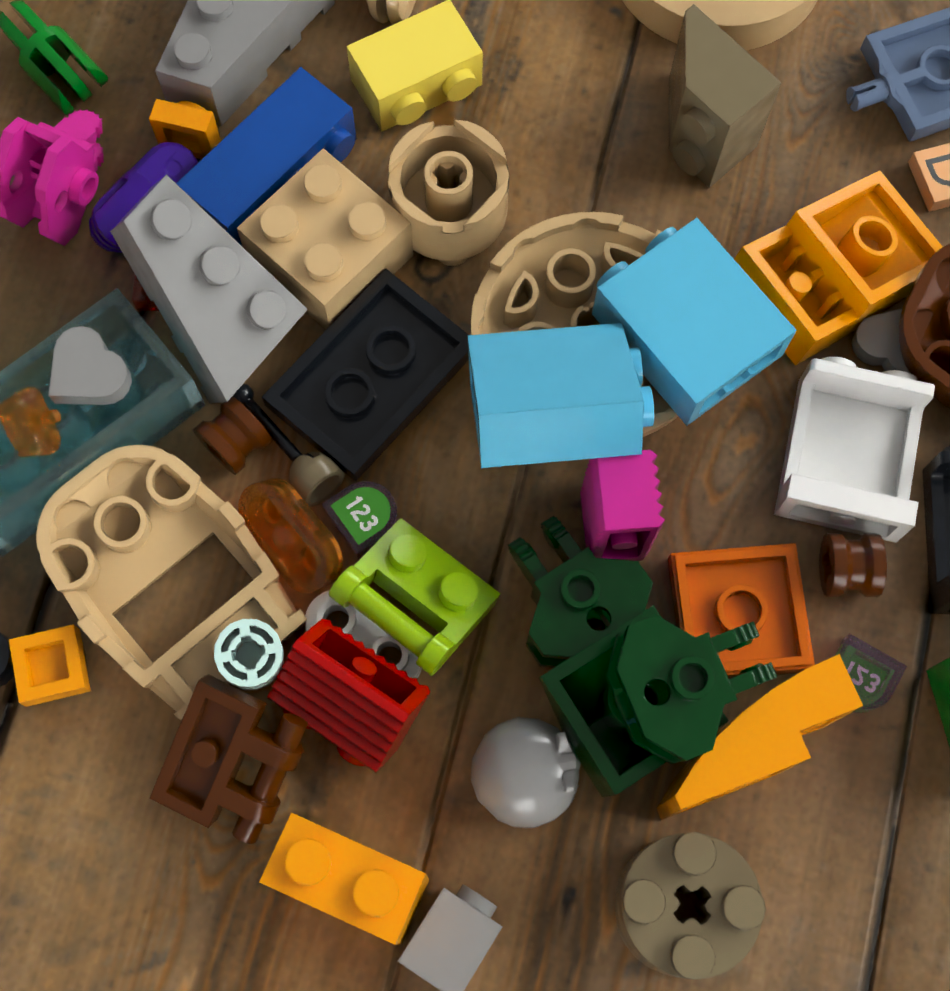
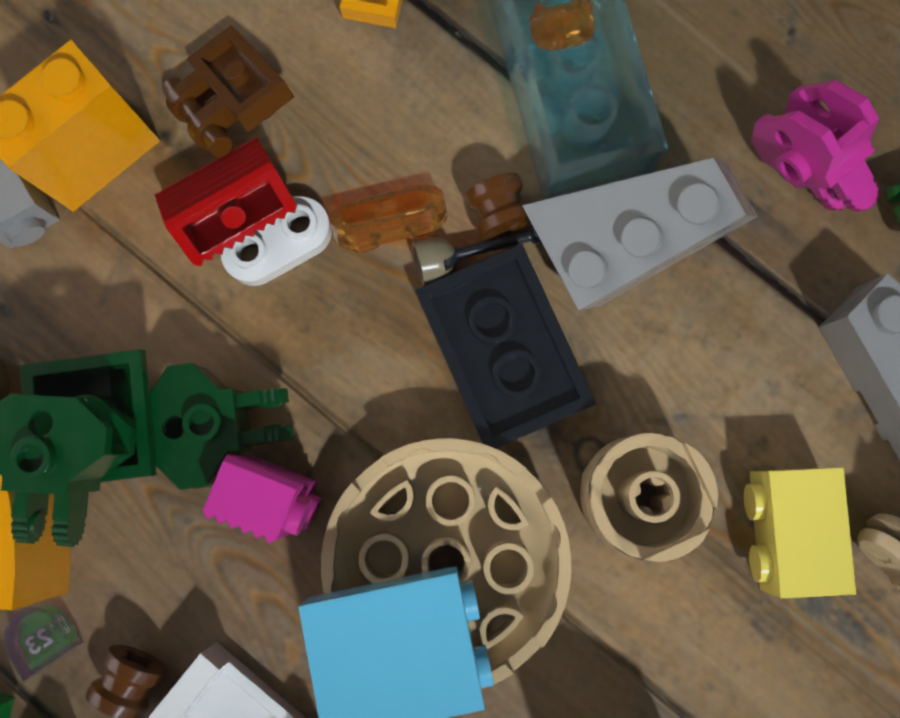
camera: 120 degrees right, 10 degrees up
(87, 370) = (595, 89): light grey tile -> none
(120, 198) = (776, 236): dark purple arm -> none
(125, 528) = (455, 83): tan slope -> none
(185, 124) = (822, 287): light orange plate -> none
(253, 664) = (297, 142): light aqua wheel -> none
(270, 149) = (755, 349): blue brick -> none
(327, 237) = (649, 361): tan brick -> none
(362, 514) = (381, 287): tile -> none
(424, 582) = (294, 311): lime plate -> none
(525, 772) = (94, 311): light grey helmet -> none
(557, 395) = (369, 483): medium azure brick -> none
(745, 585) = (144, 564): orange tile -> none

